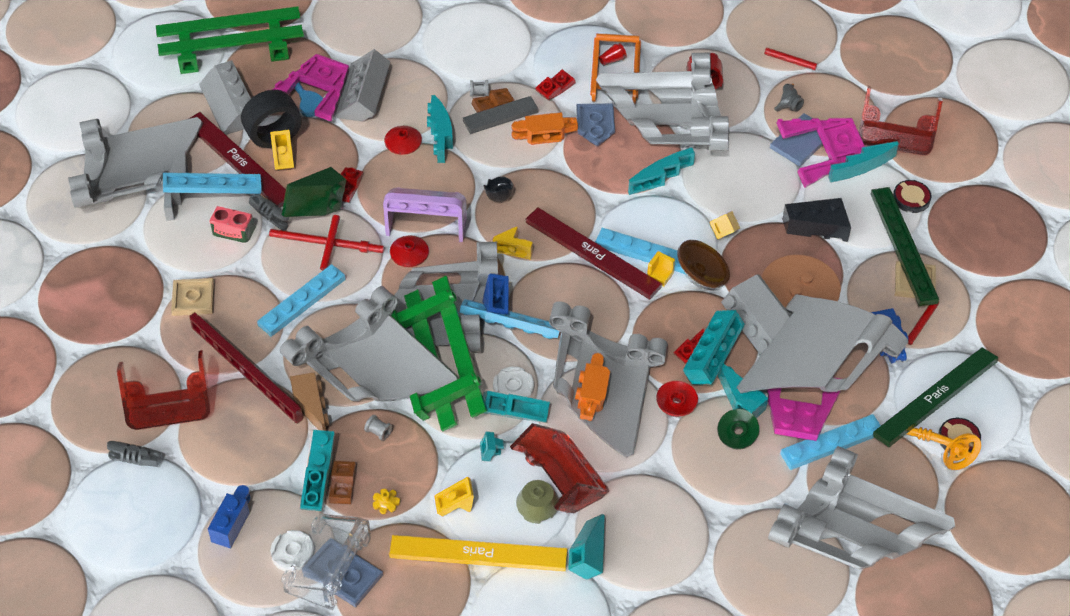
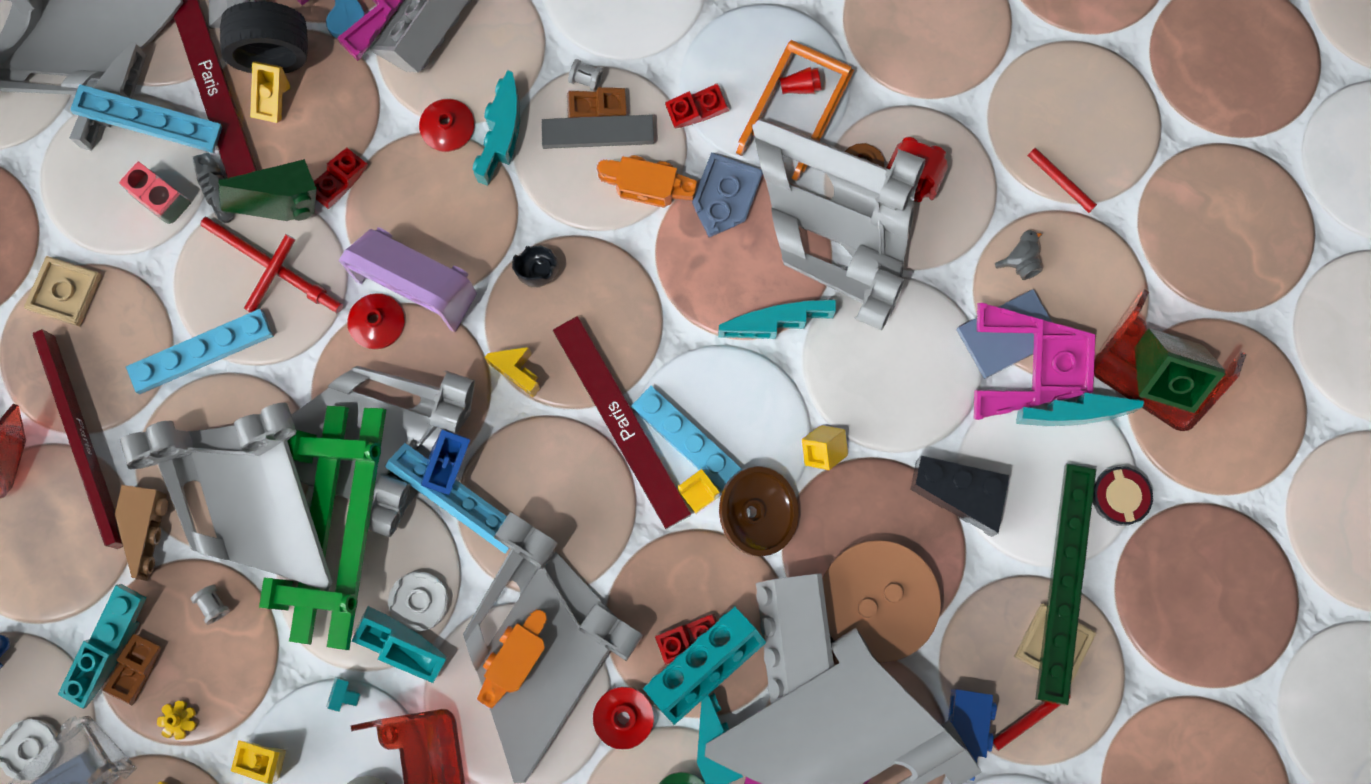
camera: 25 degrees right, 25 degrees up
(907, 115) = (1175, 370): none -> dark green slope

